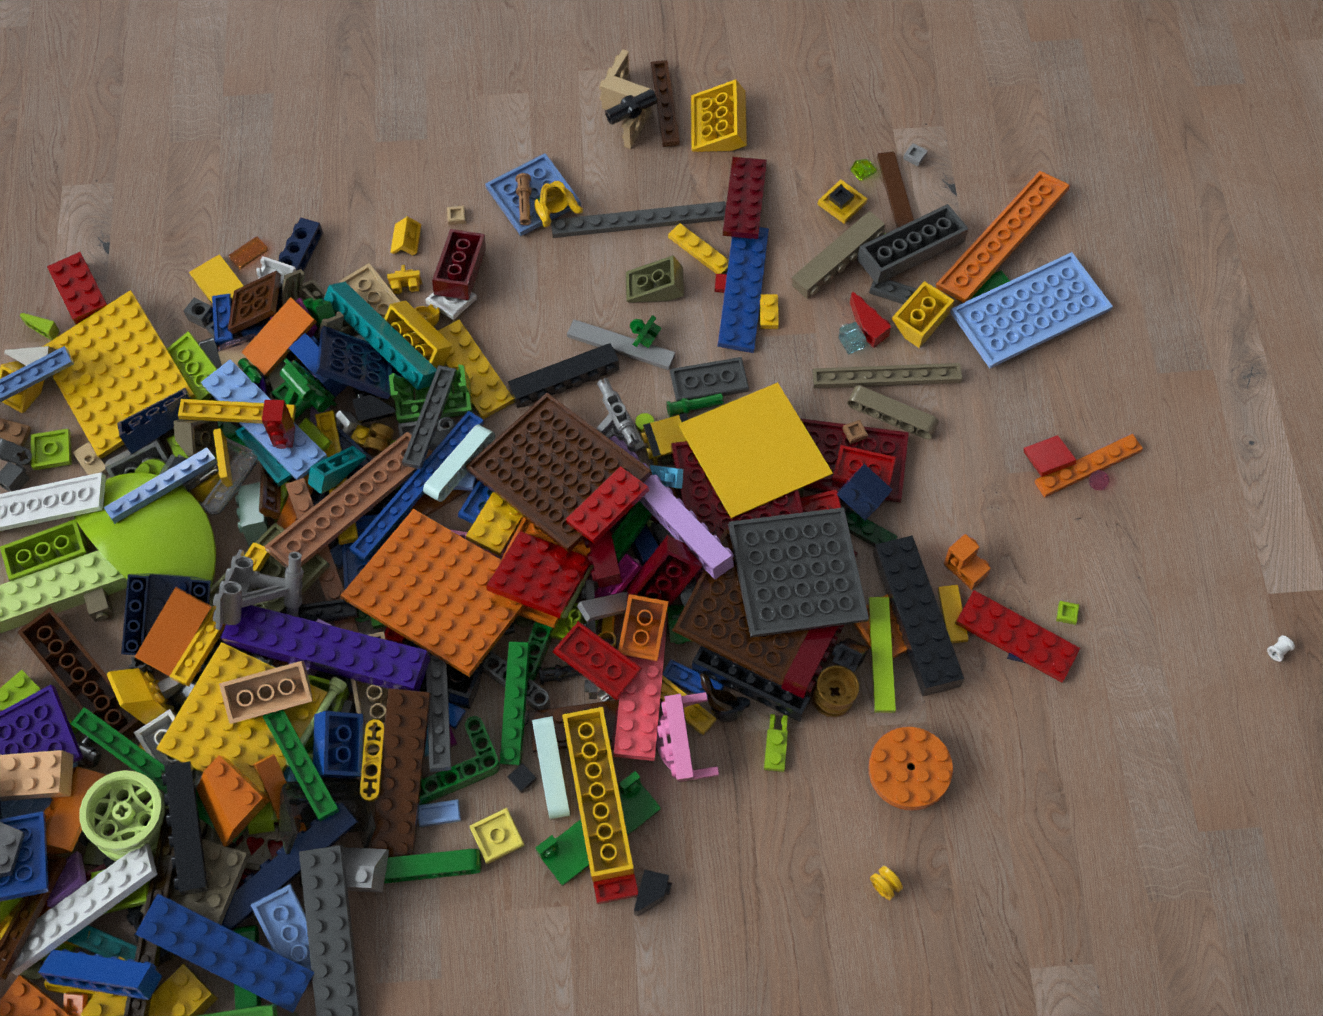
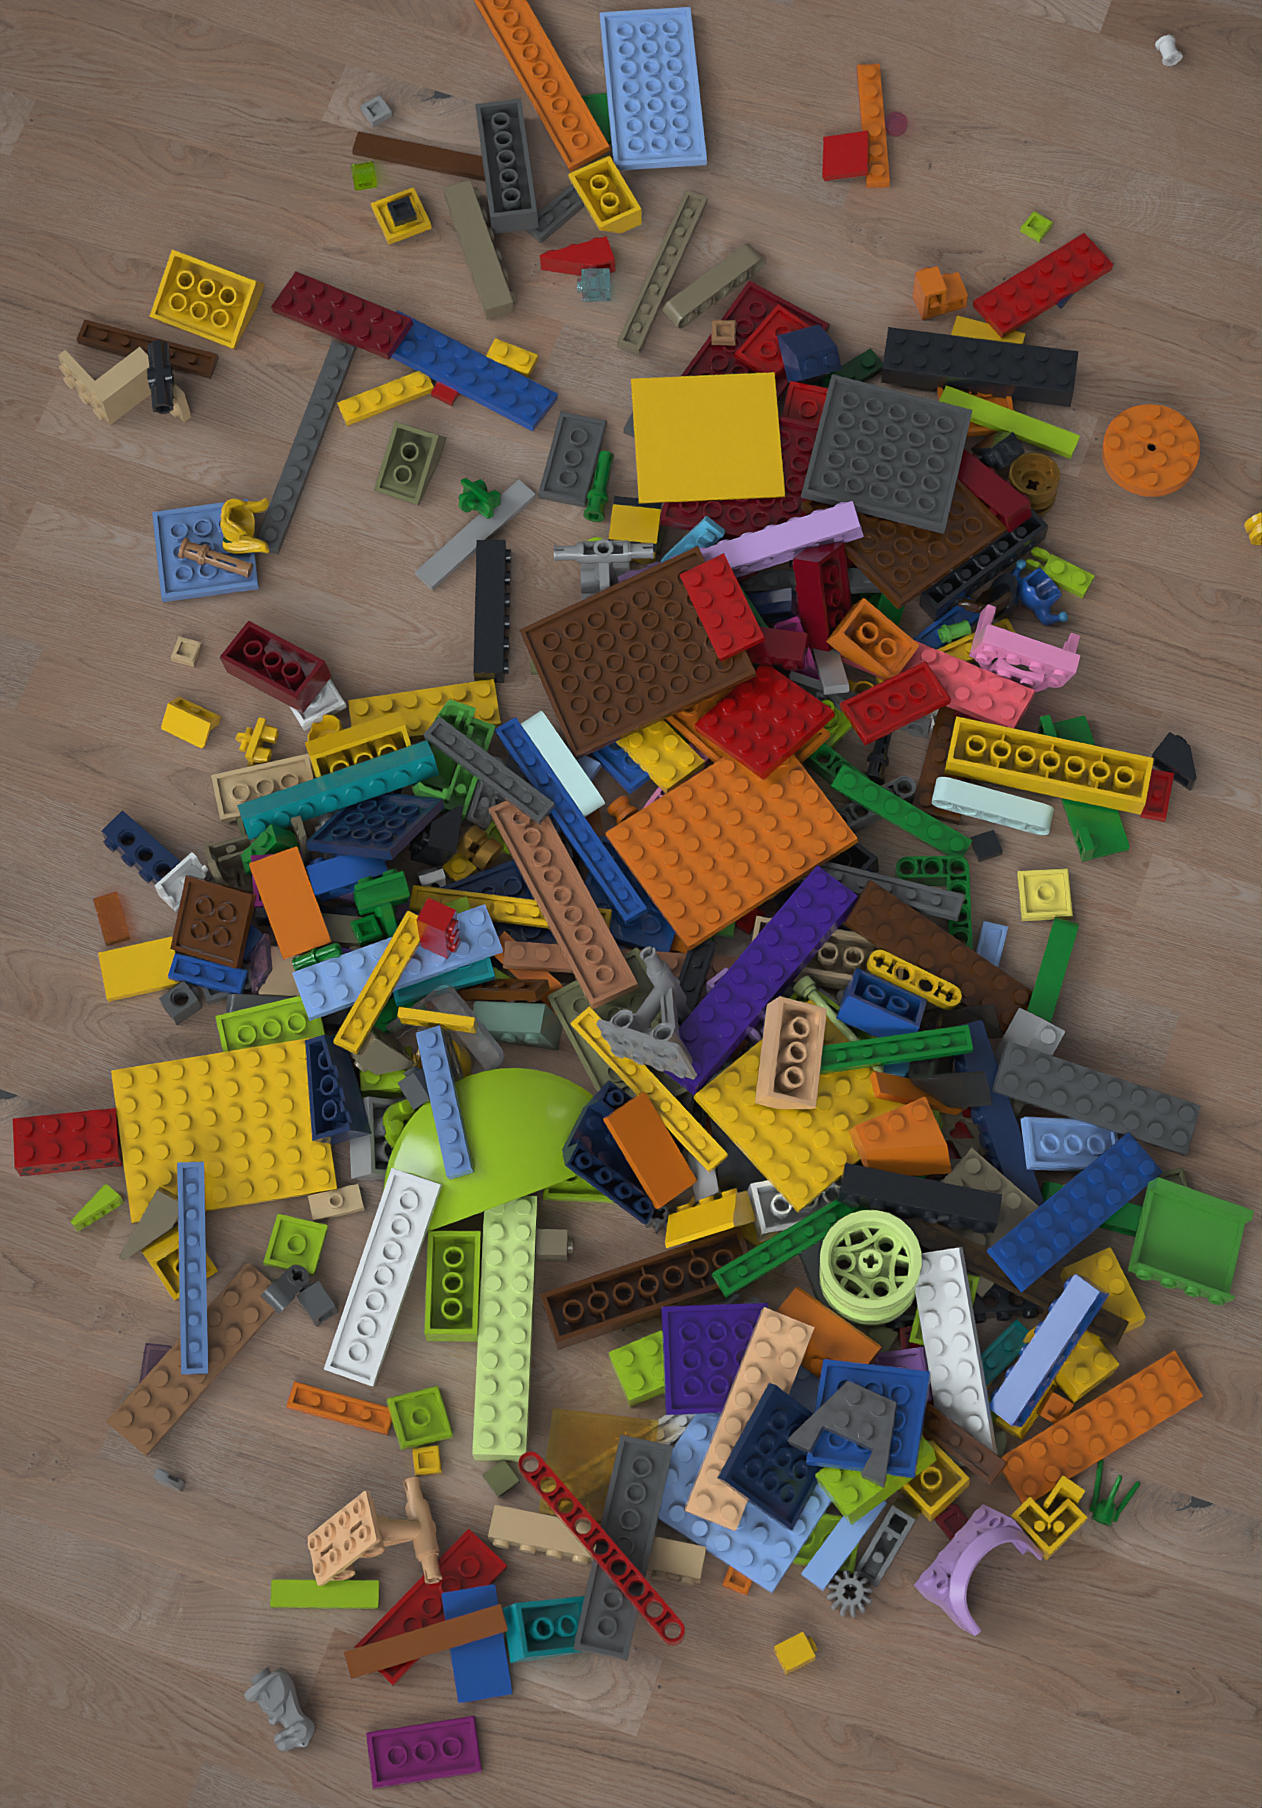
camera: 65 degrees left, 5 degrees up
(334, 469) = (509, 901): teal slope -> none
(446, 517) = (621, 809): none -> orange wheel
(685, 683) = (954, 631): none -> bright green pin
(748, 732) = (1038, 594): none -> blue piece

